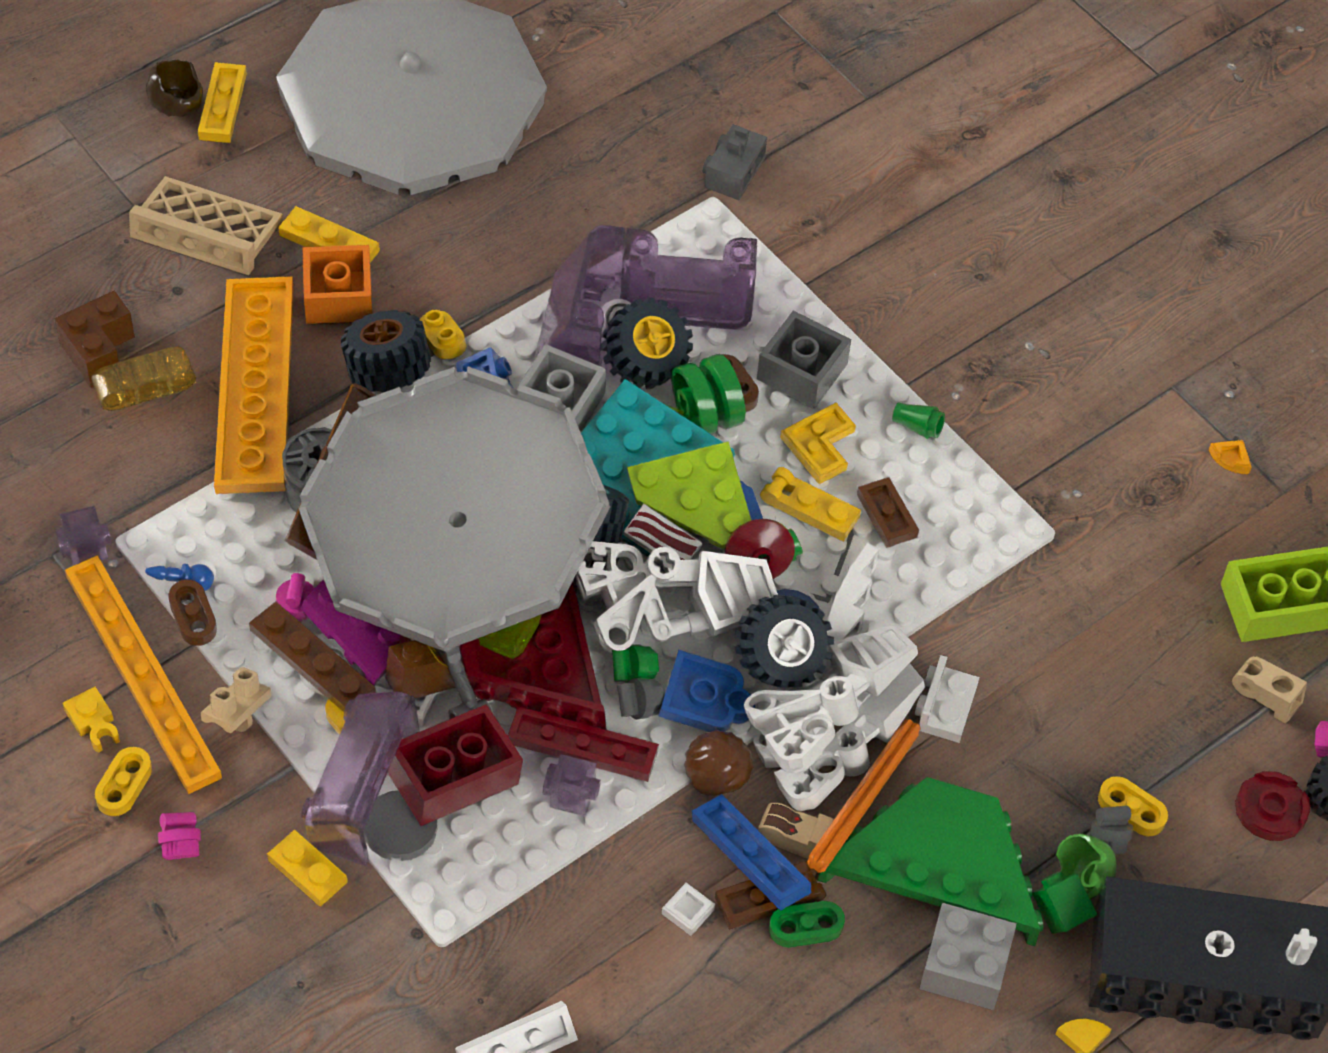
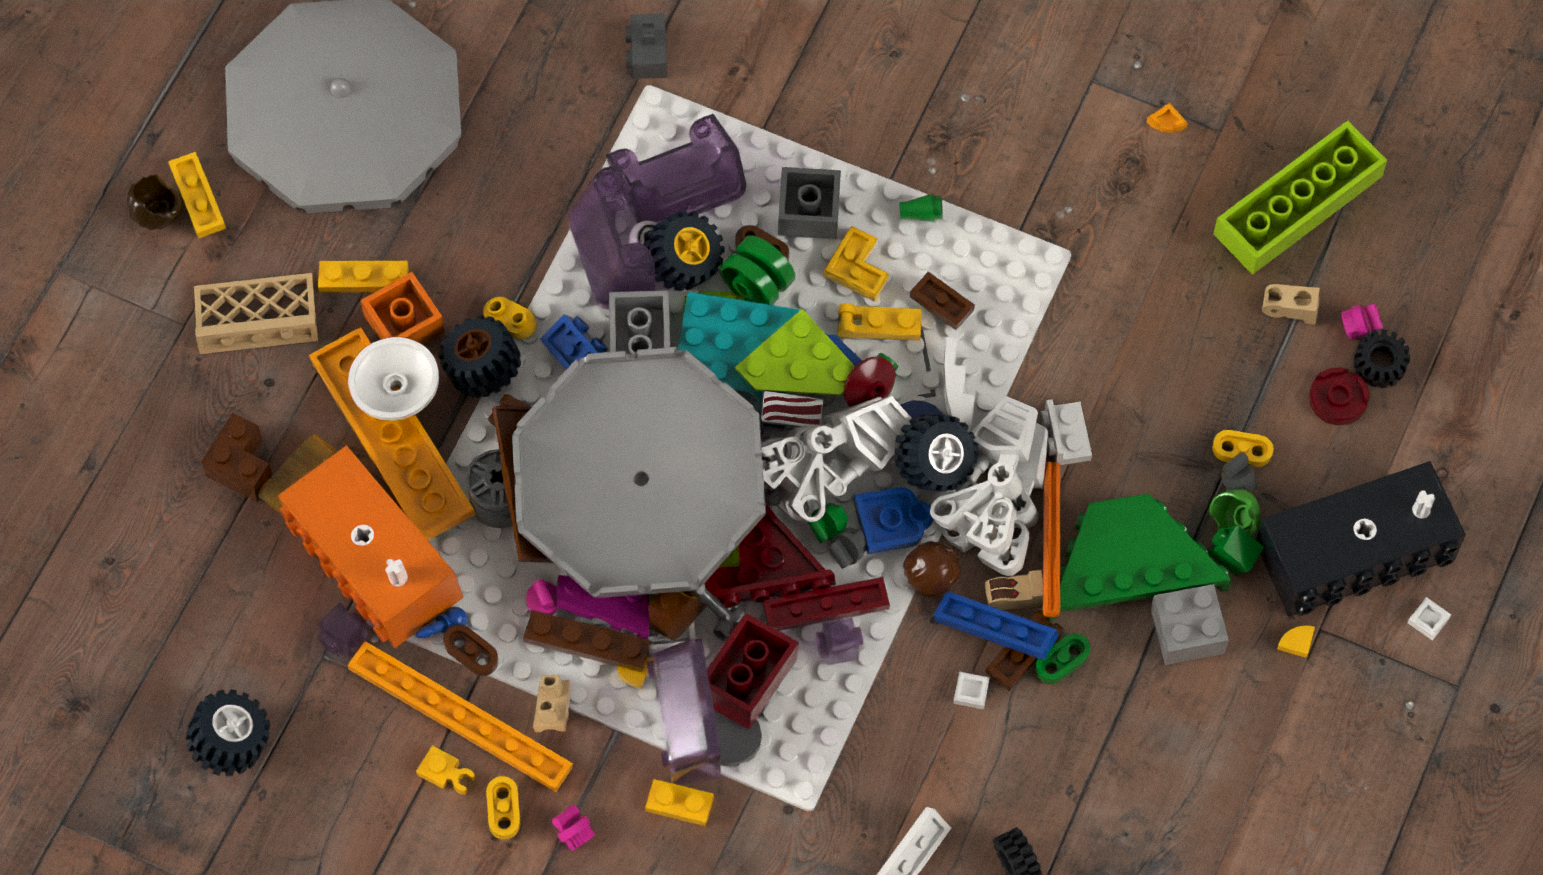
camera: 25 degrees left, 10 degrees up
(155, 468) = (369, 547): none -> orange piece
(283, 326) = (392, 364): none -> white dish

